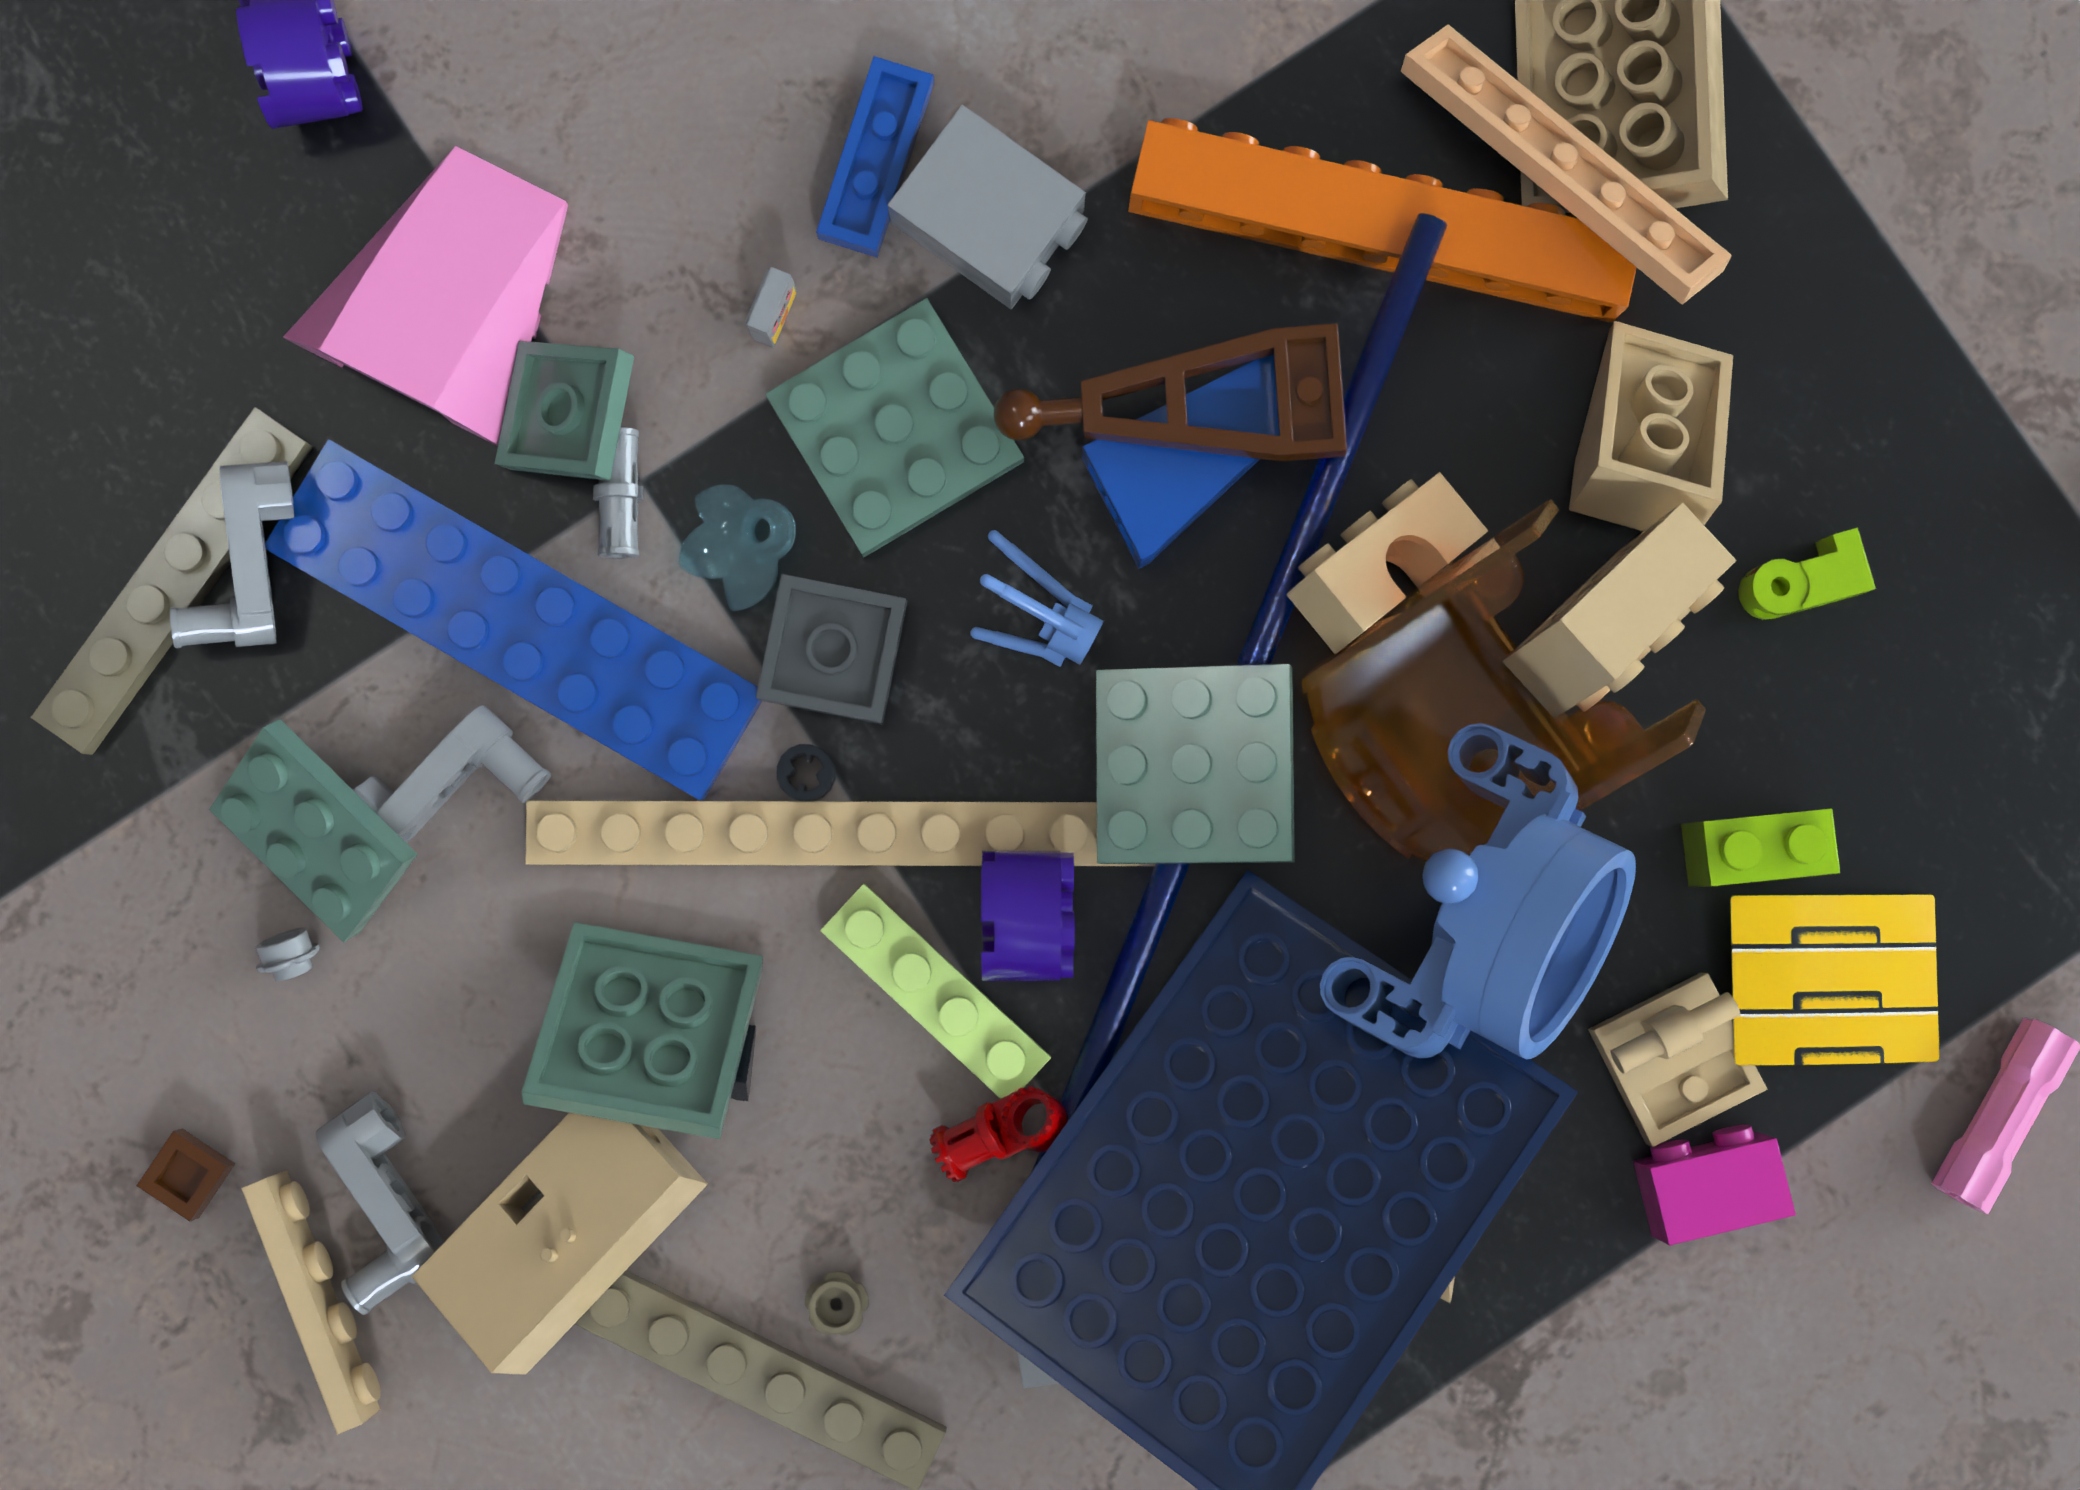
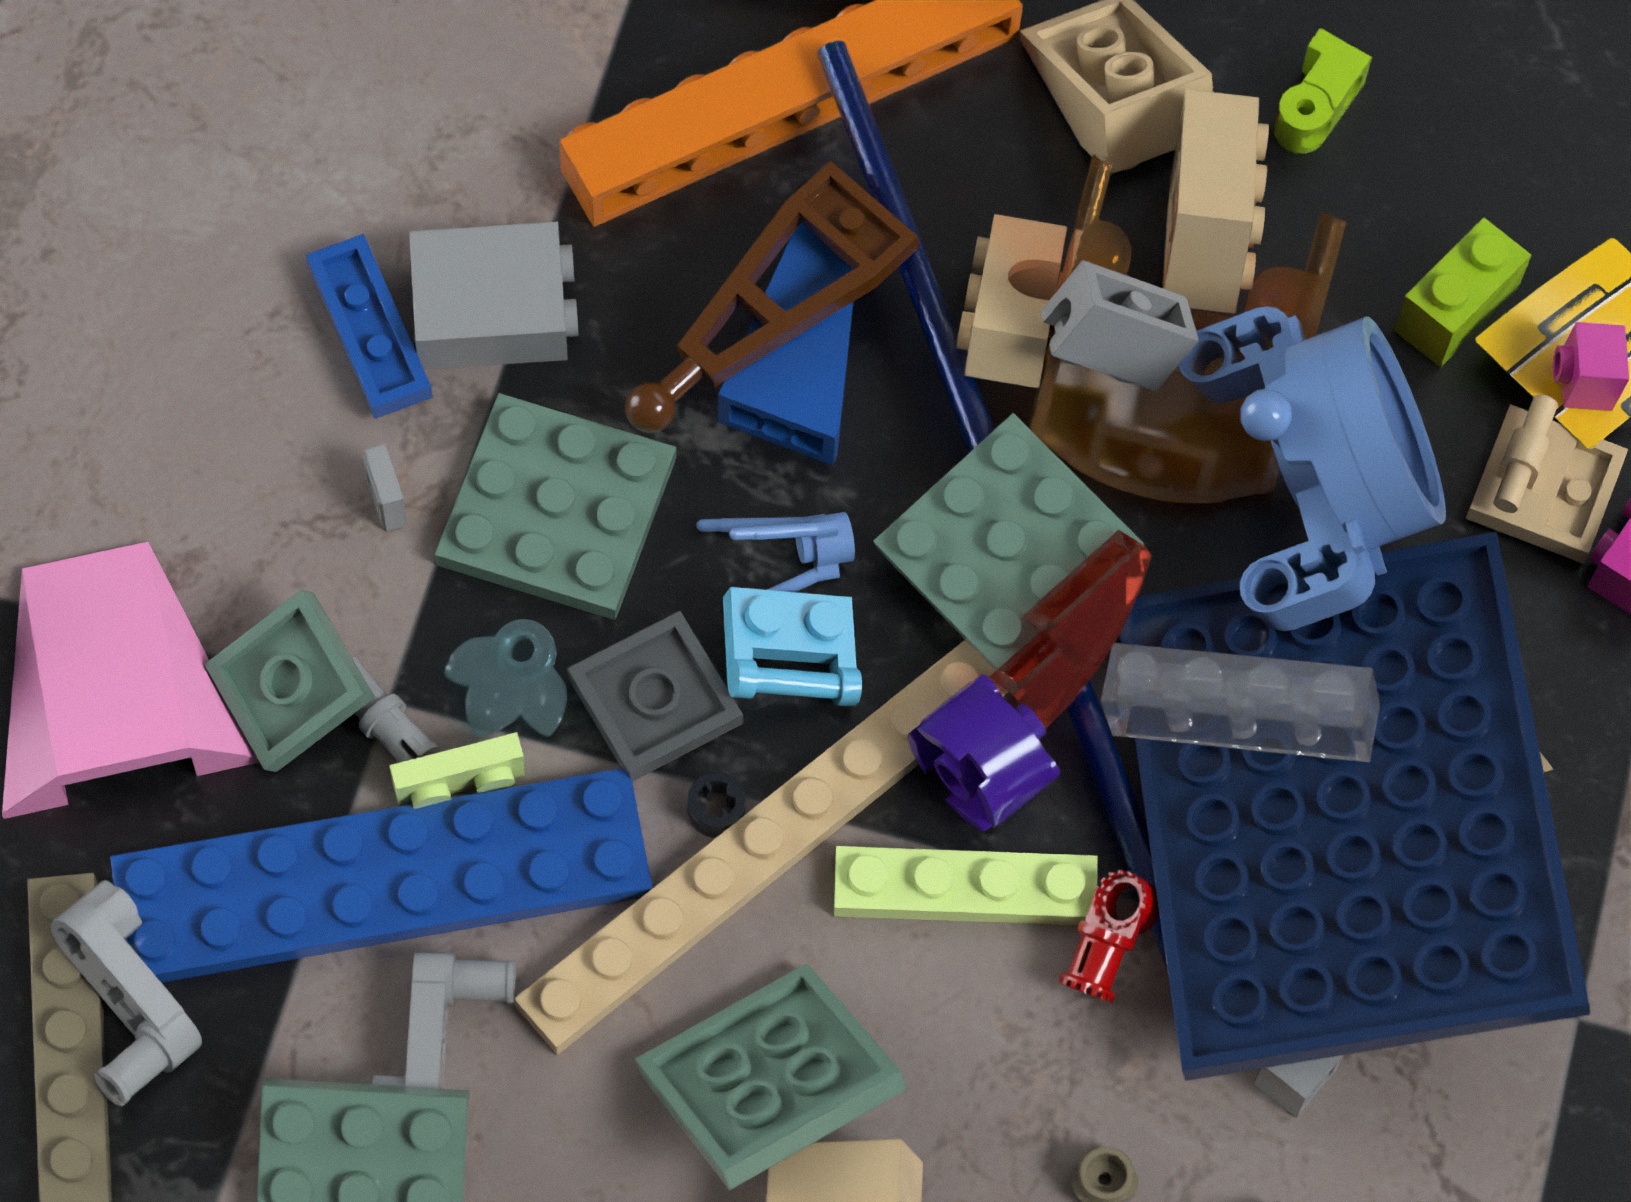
camera: 40 degrees left, 20 degrees down
(606, 579) = (437, 776): none -> yellowish green plate
(976, 680) = (790, 629): none -> medium azure plate
(1172, 885) = (1075, 628): none -> clear red slope
(1247, 1056) = (1241, 702): none -> clear brick
(1429, 670) = (1120, 326): none -> light grey brick
(1799, 1007) = (1592, 366): none -> dark pink plate

